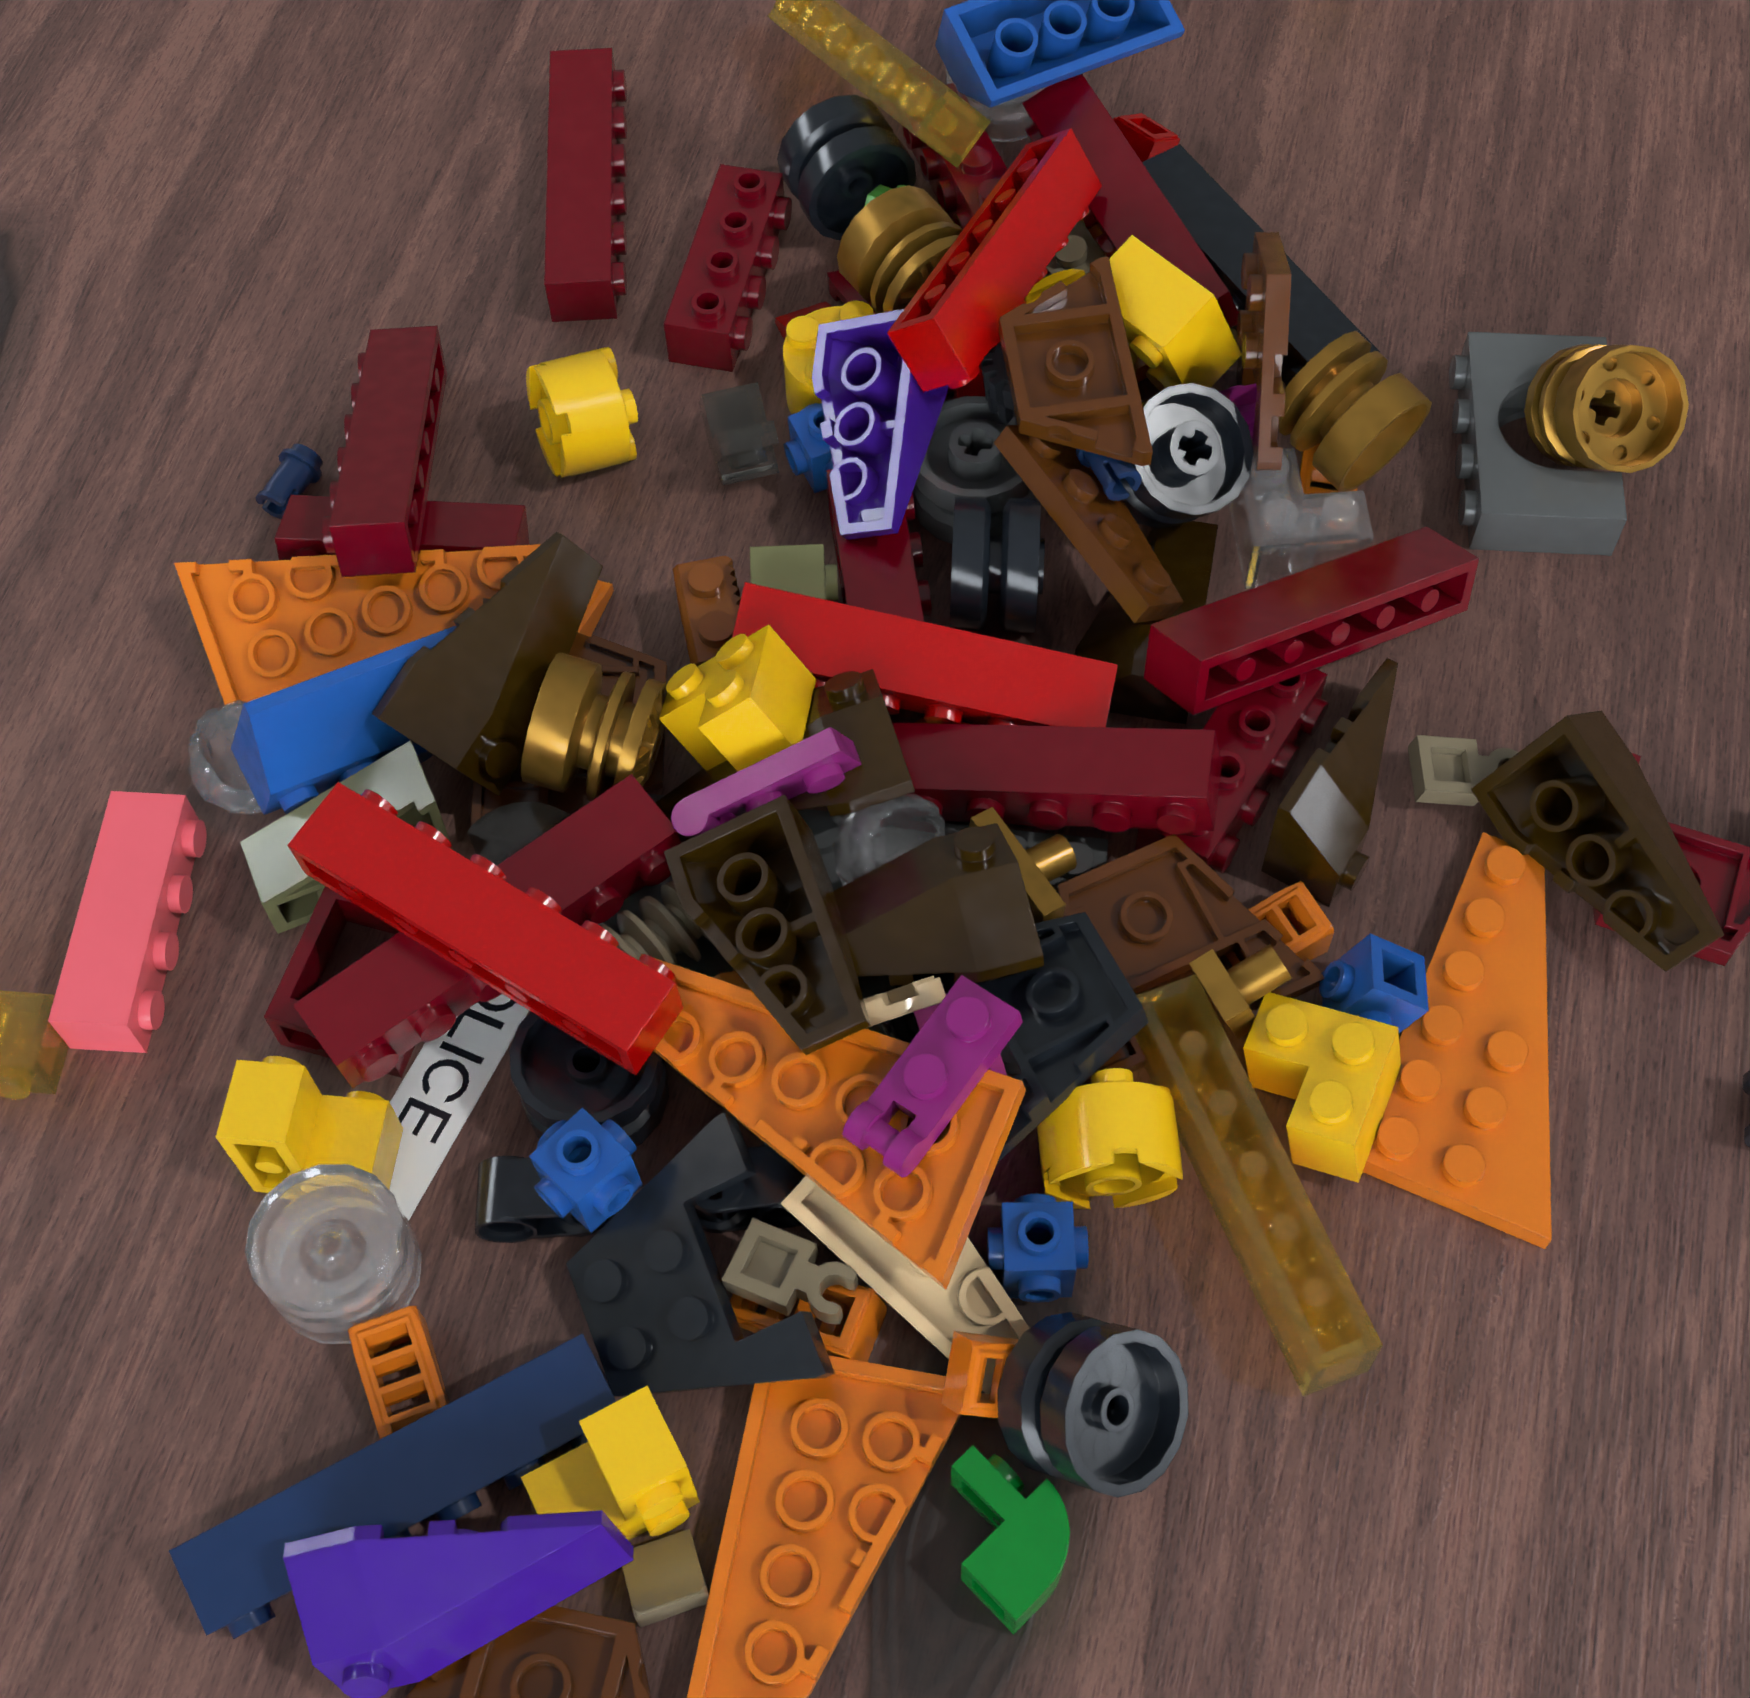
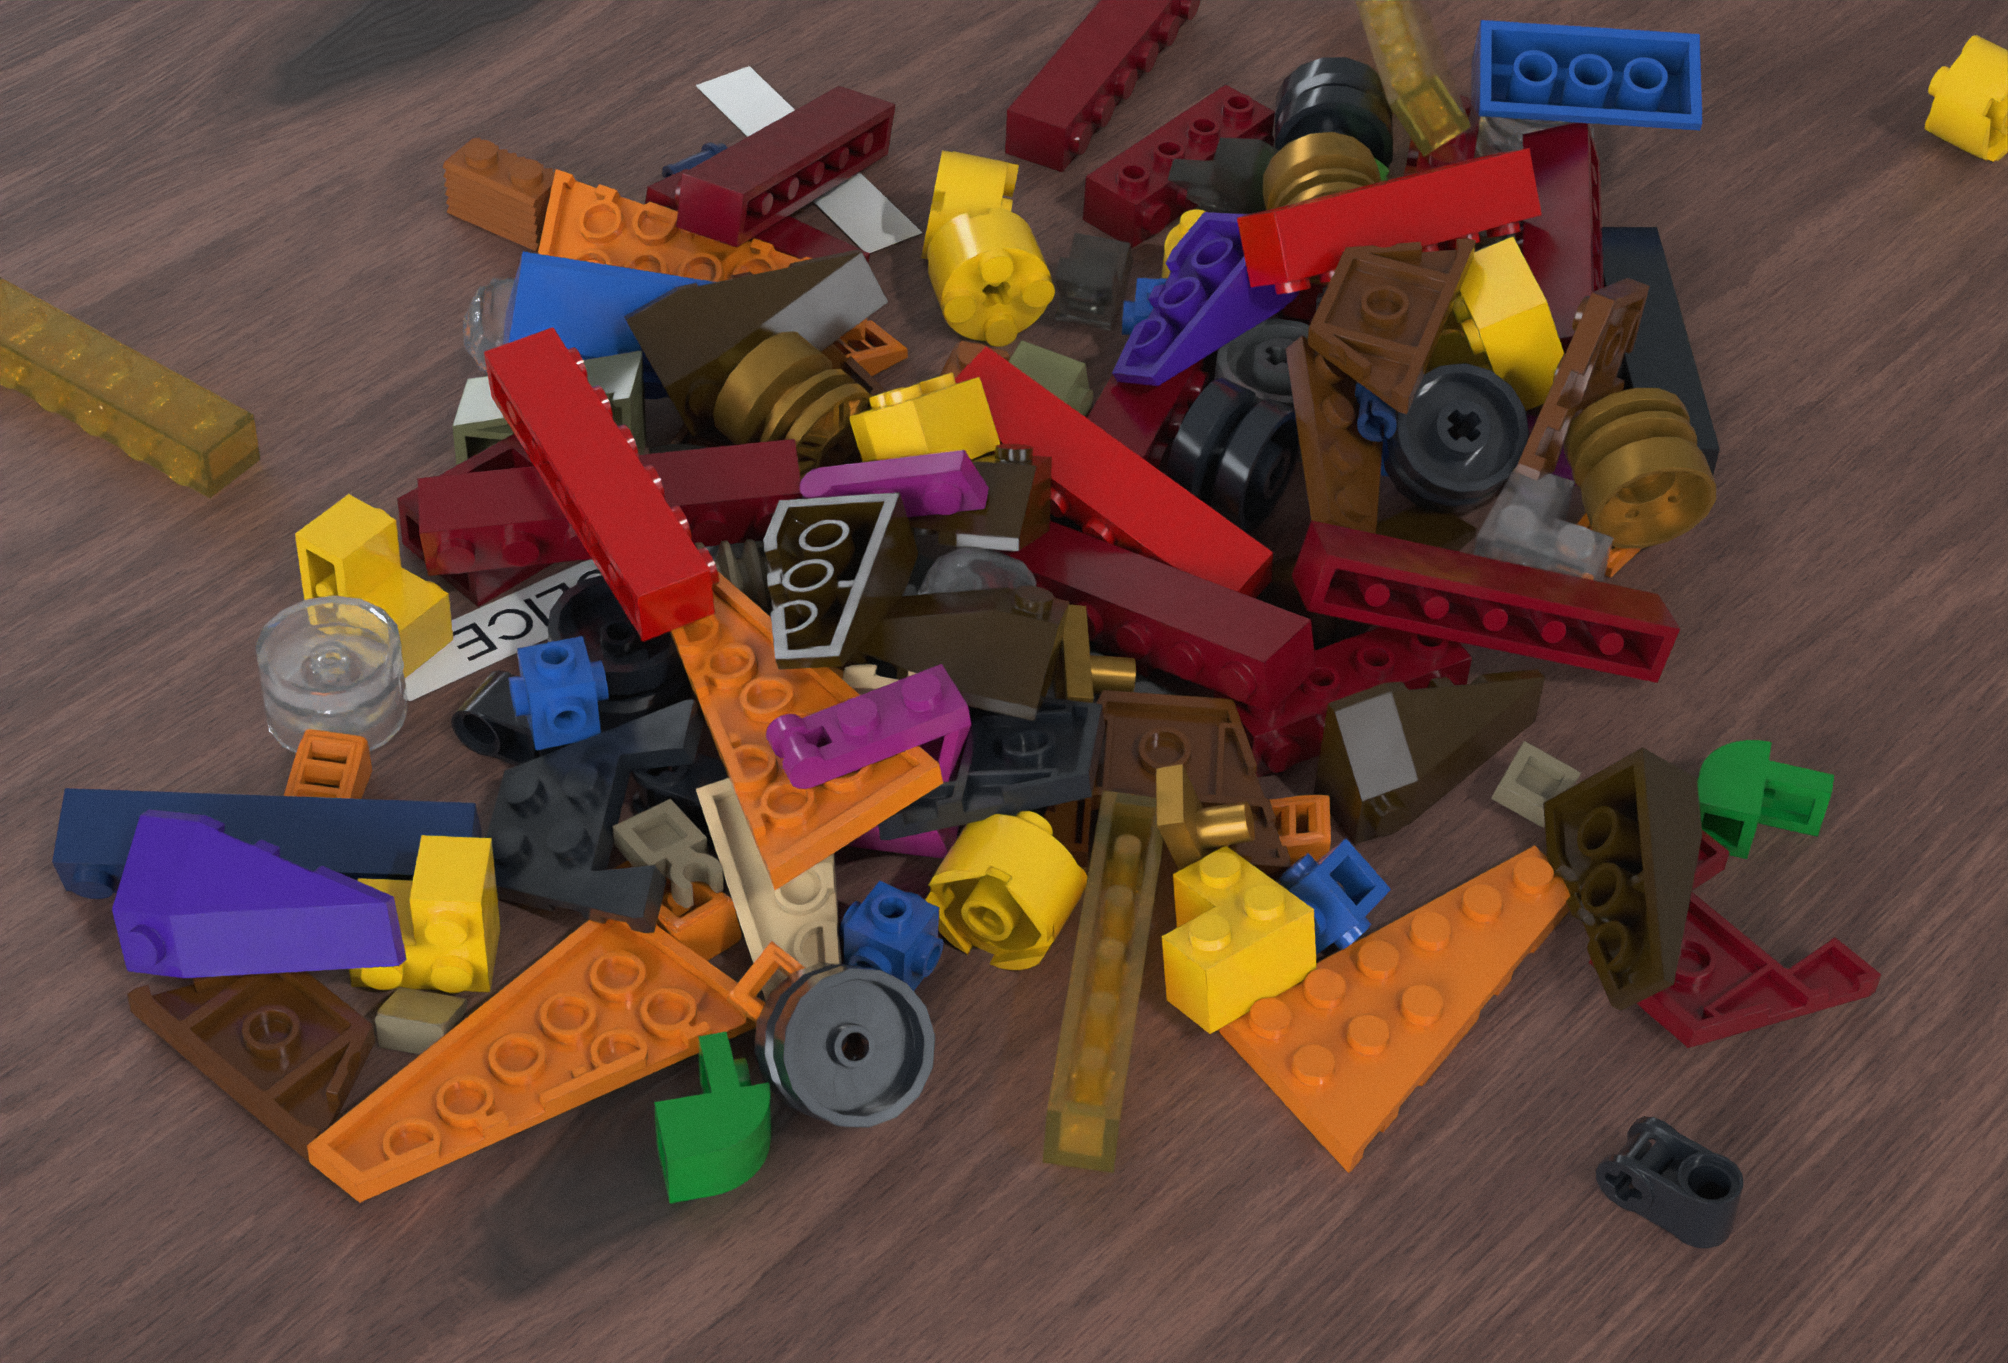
camera: 25 degrees right, 15 degrees down
(122, 603) = (498, 191): none -> dark orange brick
(128, 923) = (345, 403): coral brick -> none
(324, 396) = (852, 205): none -> white sticker
(650, 476) = (989, 276): none -> yellow brick
(799, 266) = (1228, 182): none -> clear smoke brick
(1146, 135) = (1632, 211): red slope -> none
(1505, 496) = (1825, 529): dark grey arch -> none
(1624, 682) = (1747, 789): none -> green brick
(1634, 413) = (1931, 566): pearl gold wheel -> none

